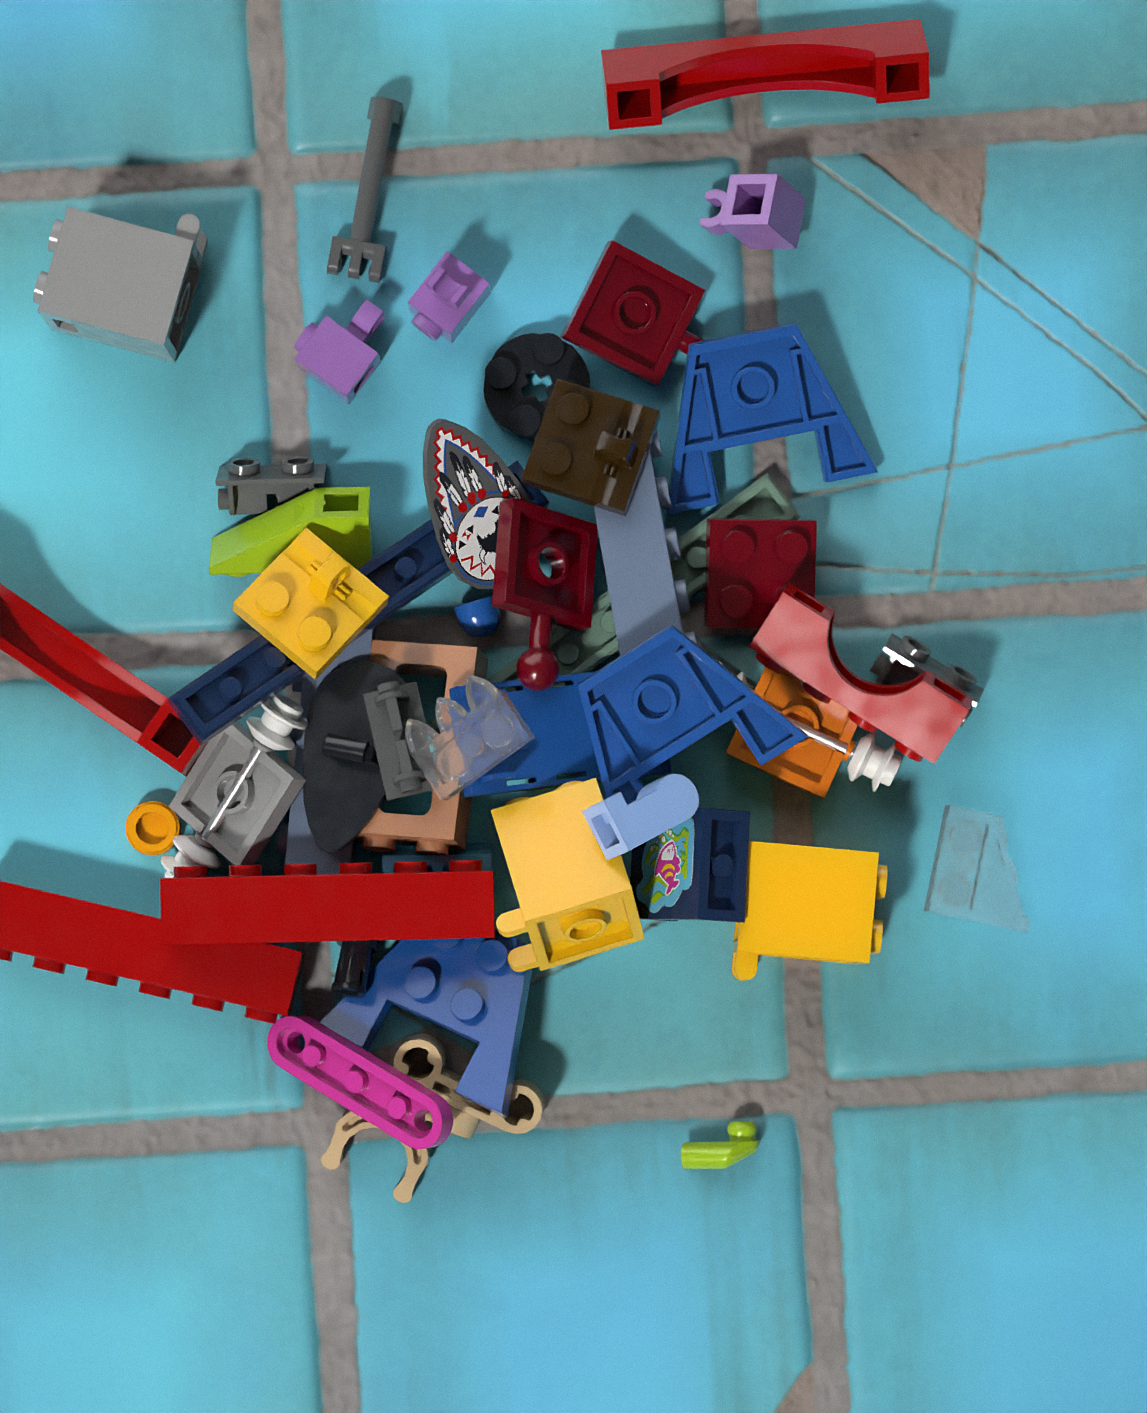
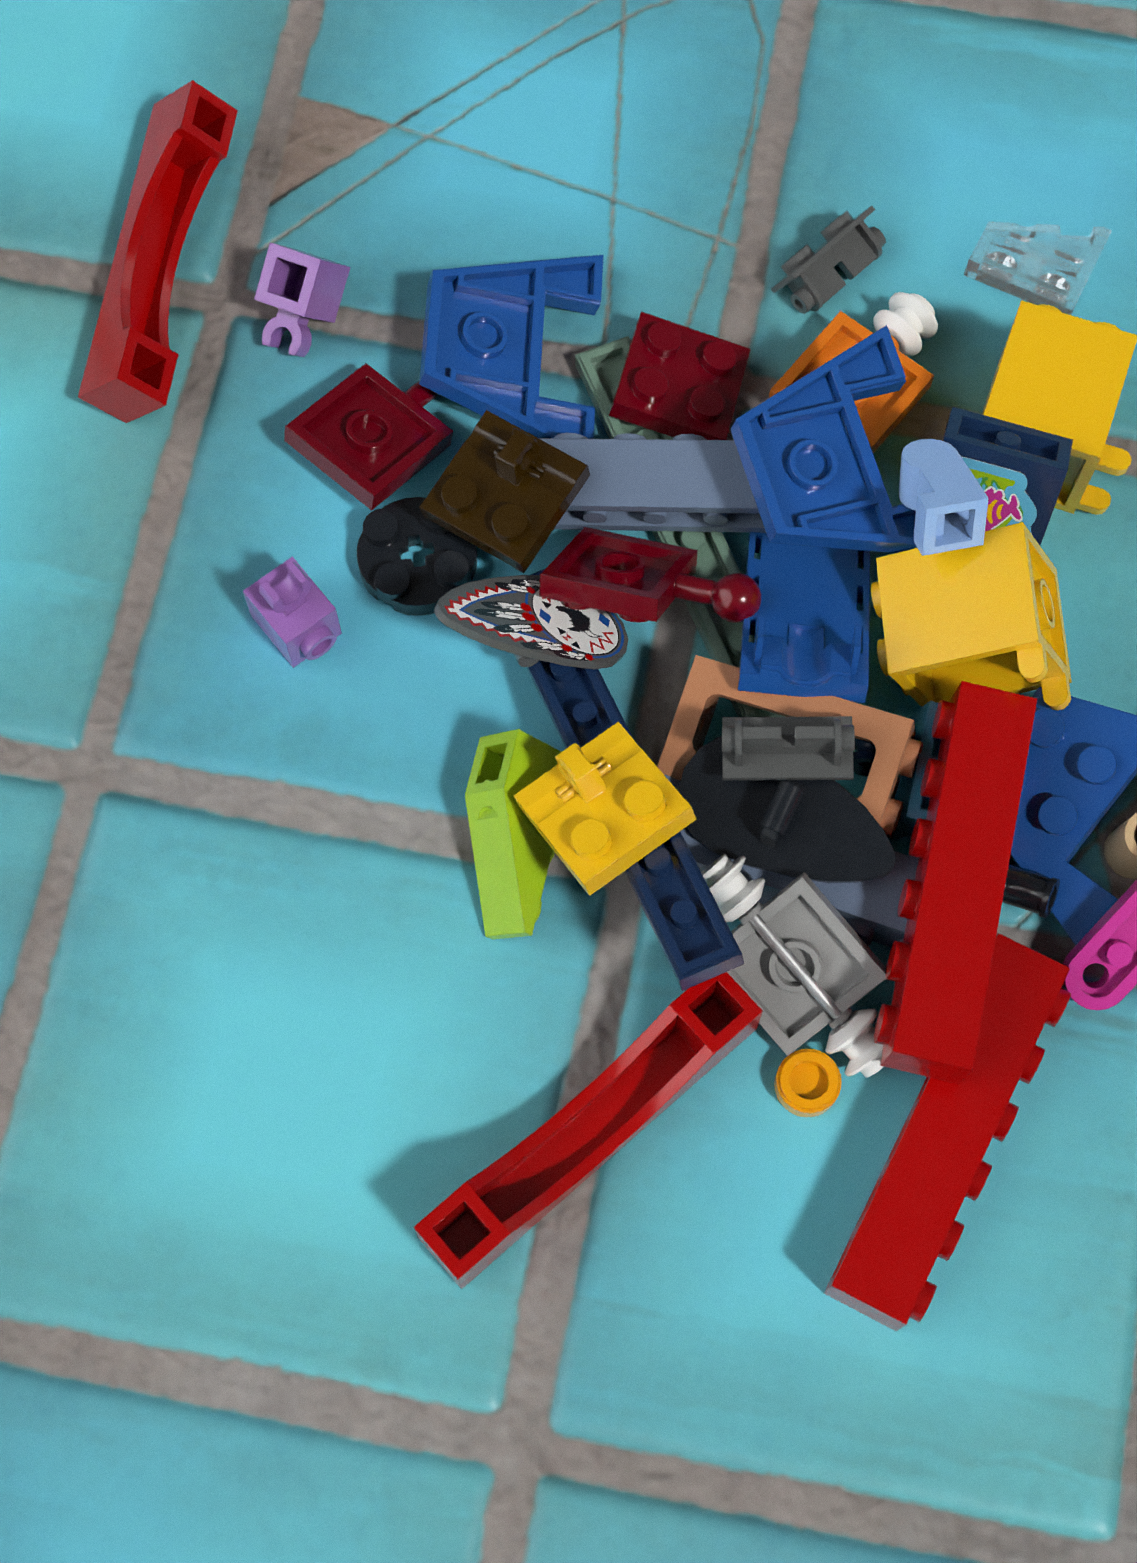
camera: 75 degrees left, 15 degrees down
(121, 282) = (162, 946): light grey container -> none
(251, 482) = (435, 872): dark grey hinge -> none
(339, 355) = (320, 739): medium lavender brick -> none
(382, 113) = (67, 631): dark grey hinge -> none
(468, 741) = (811, 658): clear plate -> none
(478, 617) = (652, 668): blue hinge -> none
(915, 713) = (768, 334): arch -> none

